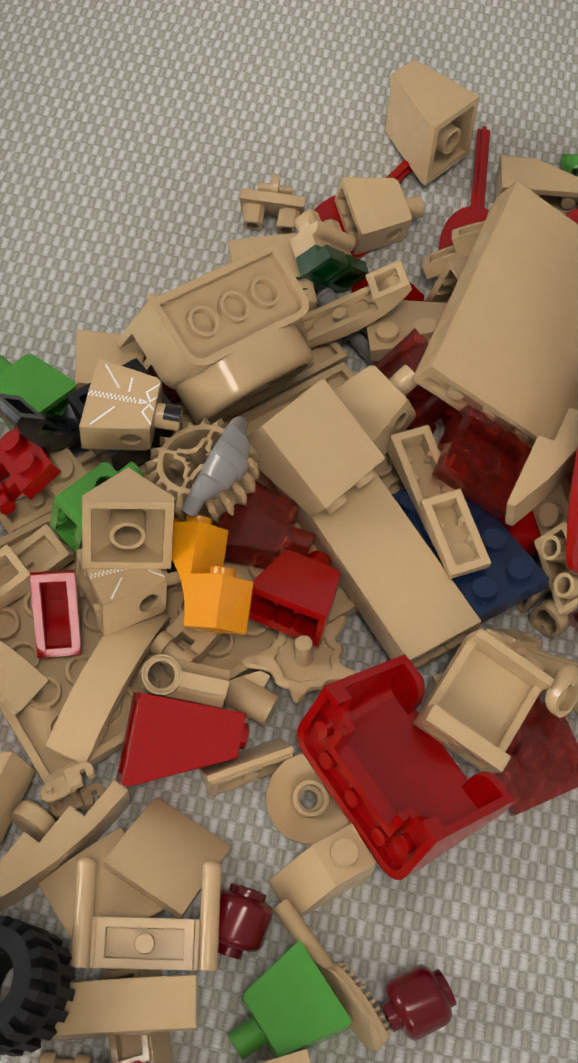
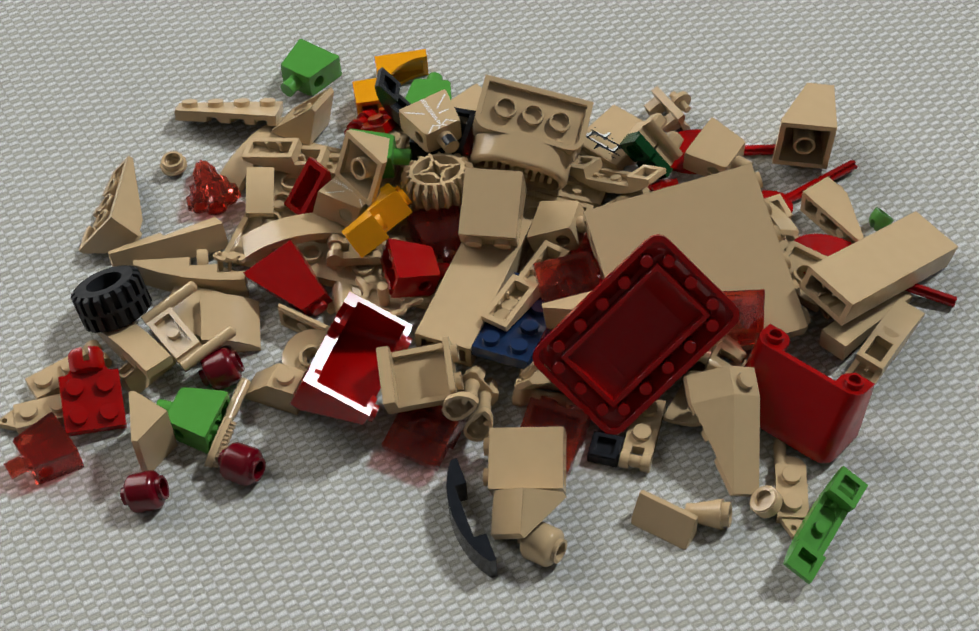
camera: 60 degrees right, 10 degrees down
(188, 681) = (318, 258): tan piece -> none
(223, 466) = (434, 172): light grey piece -> none

